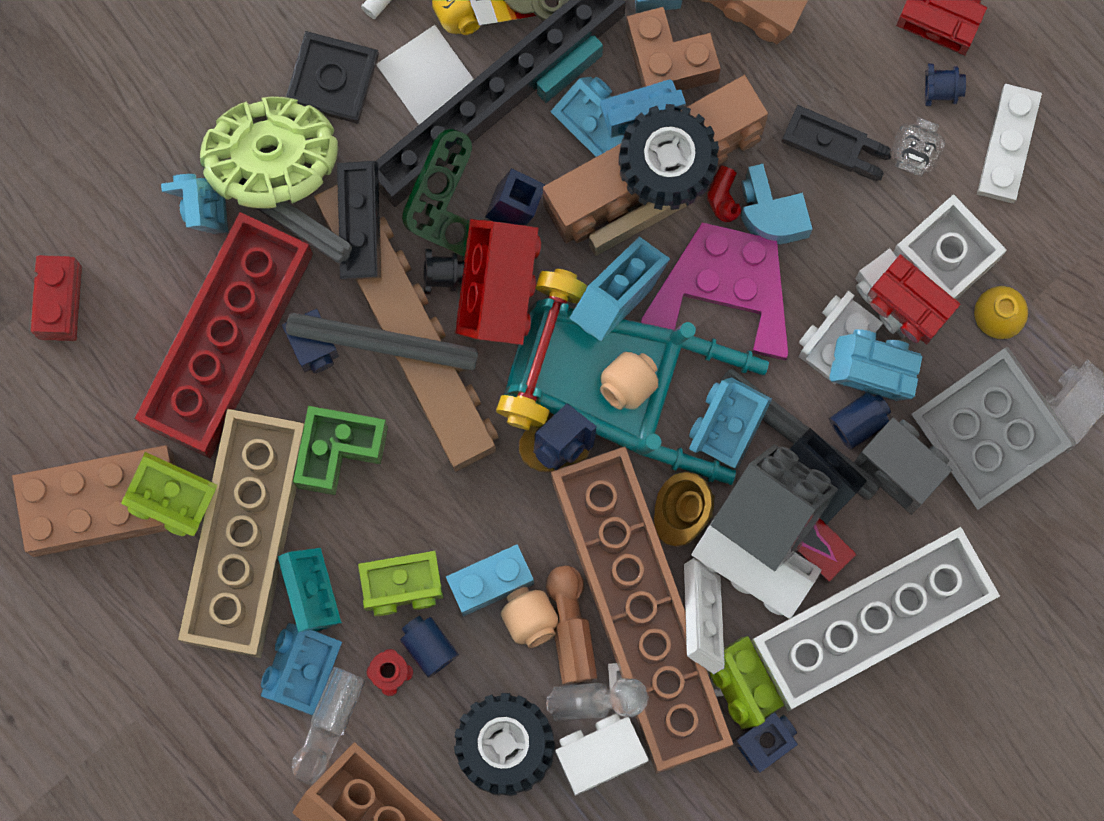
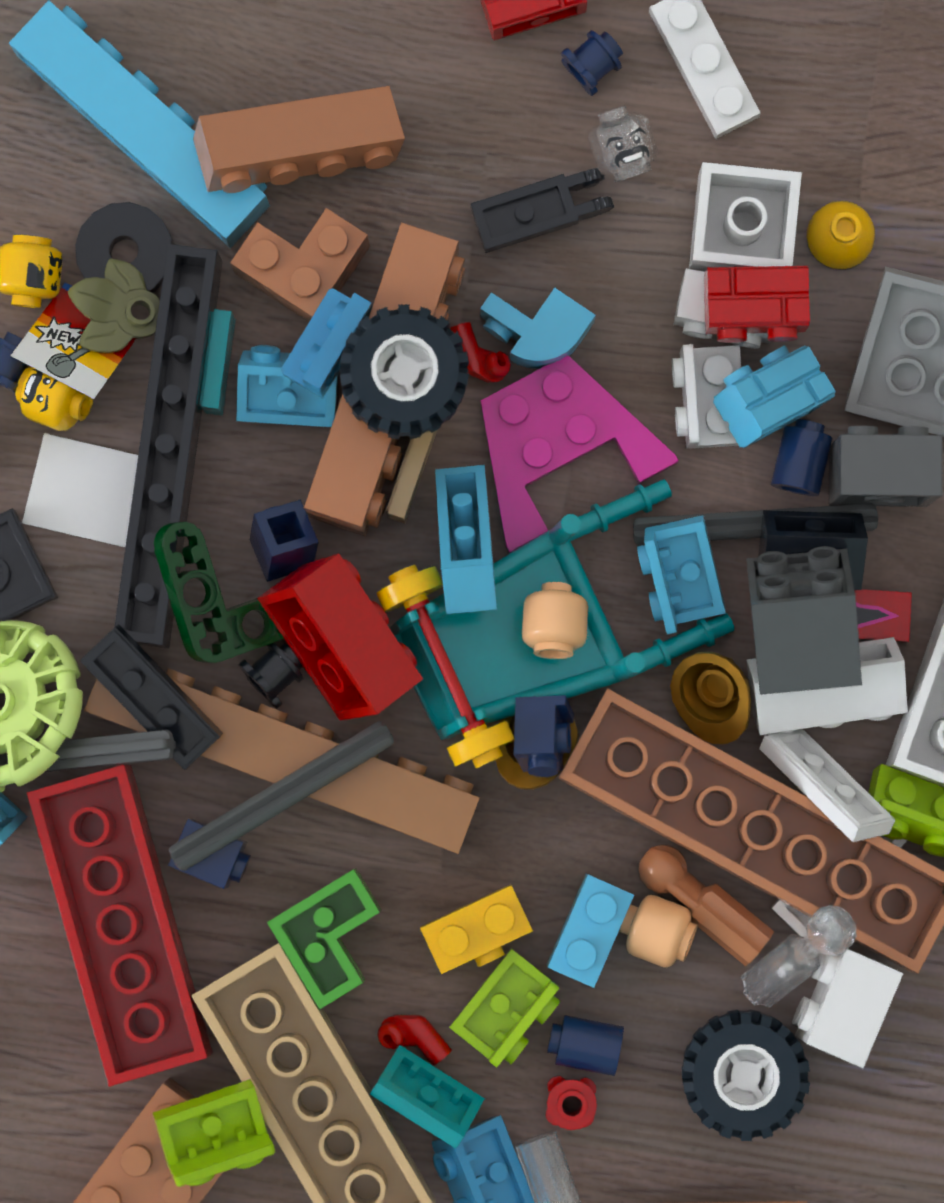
camera: 40 degrees left, 5 degrees up
(335, 549) = (413, 1031): none -> red arm
(424, 521) = (476, 930): none -> yellow brick

